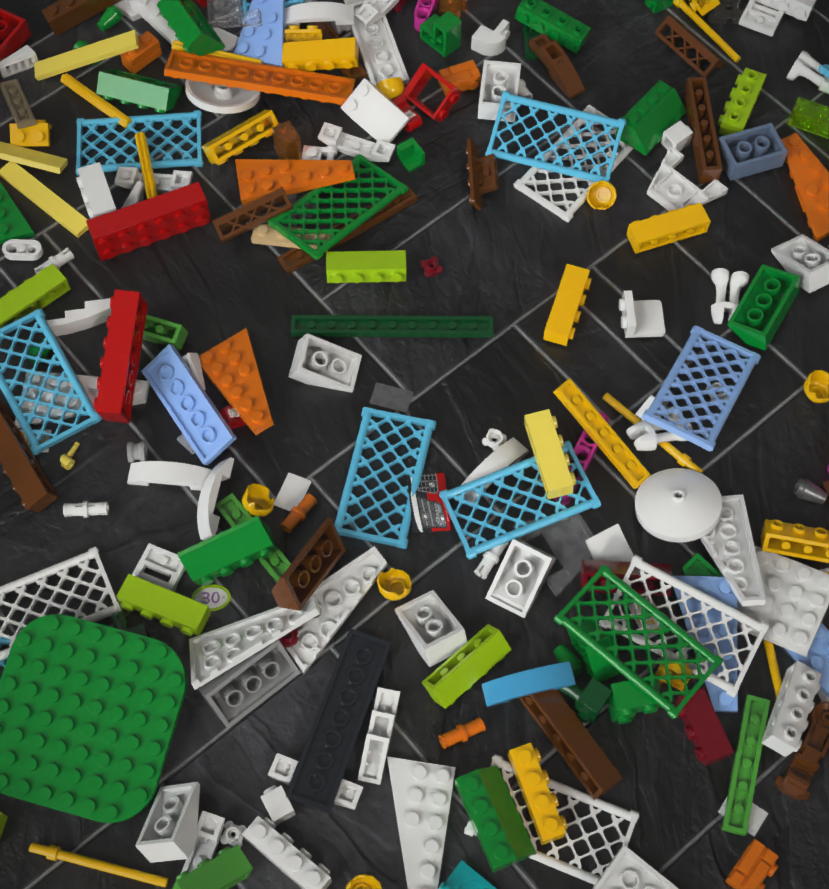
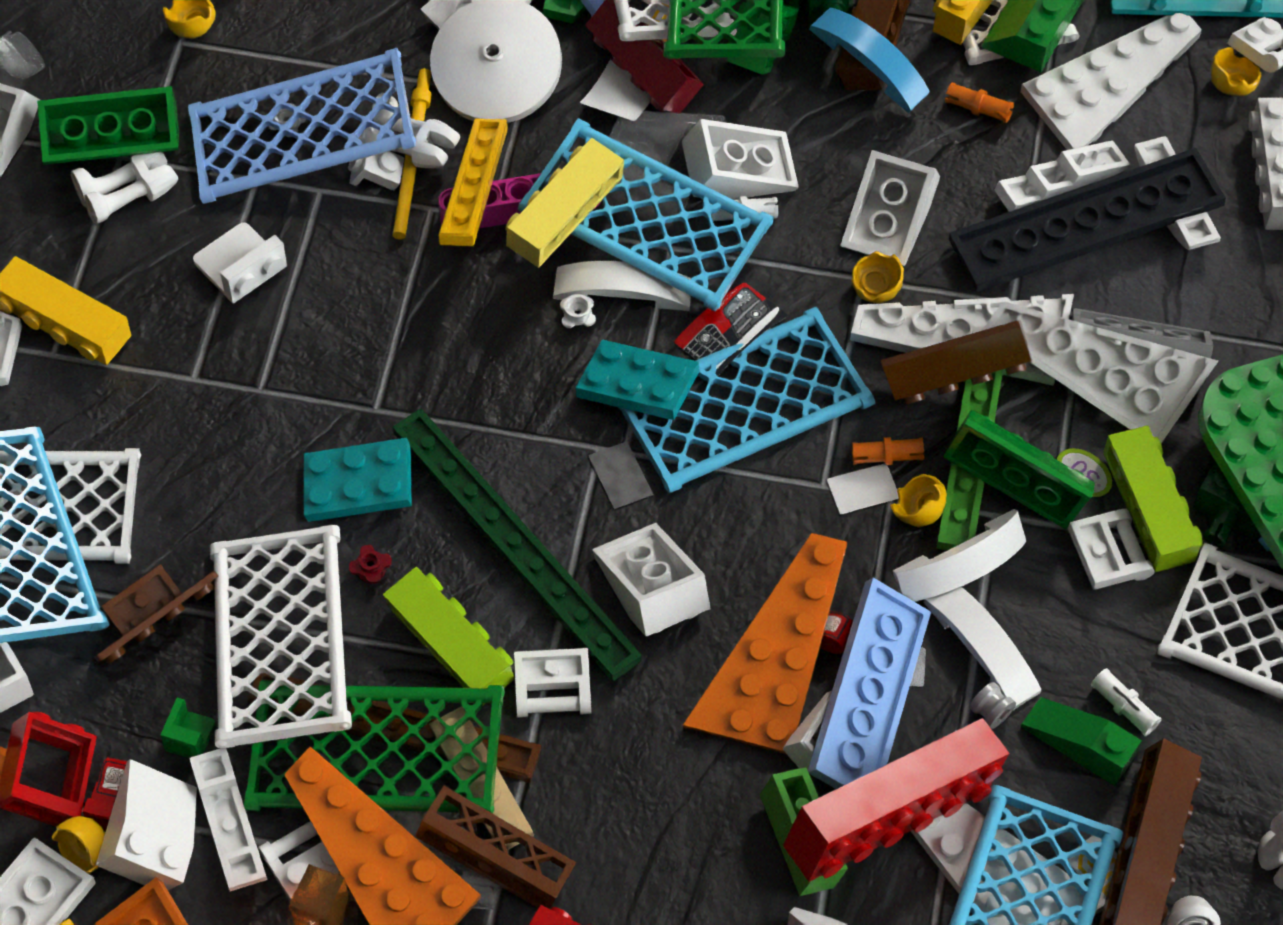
camera: 130 degrees left, 5 degrees down
(66, 459) = (1087, 791): light yellow hand -> none
(87, 475) = (1084, 738): none -> green slope
(277, 804) = (1237, 212): white brick -> none
(316, 298) = (548, 672): none -> white plate
(417, 228) = (254, 546): none -> white door
(430, 432) = (637, 379): none -> teal plate
(466, 666) = (904, 138): lime brick -> none
(477, 286) = (357, 479): none -> teal plate
(563, 655) = (798, 54): green cone -> none
(566, 305) = (298, 350): yellow brick -> none
(601, 195) = (64, 427): yellow hair -> none

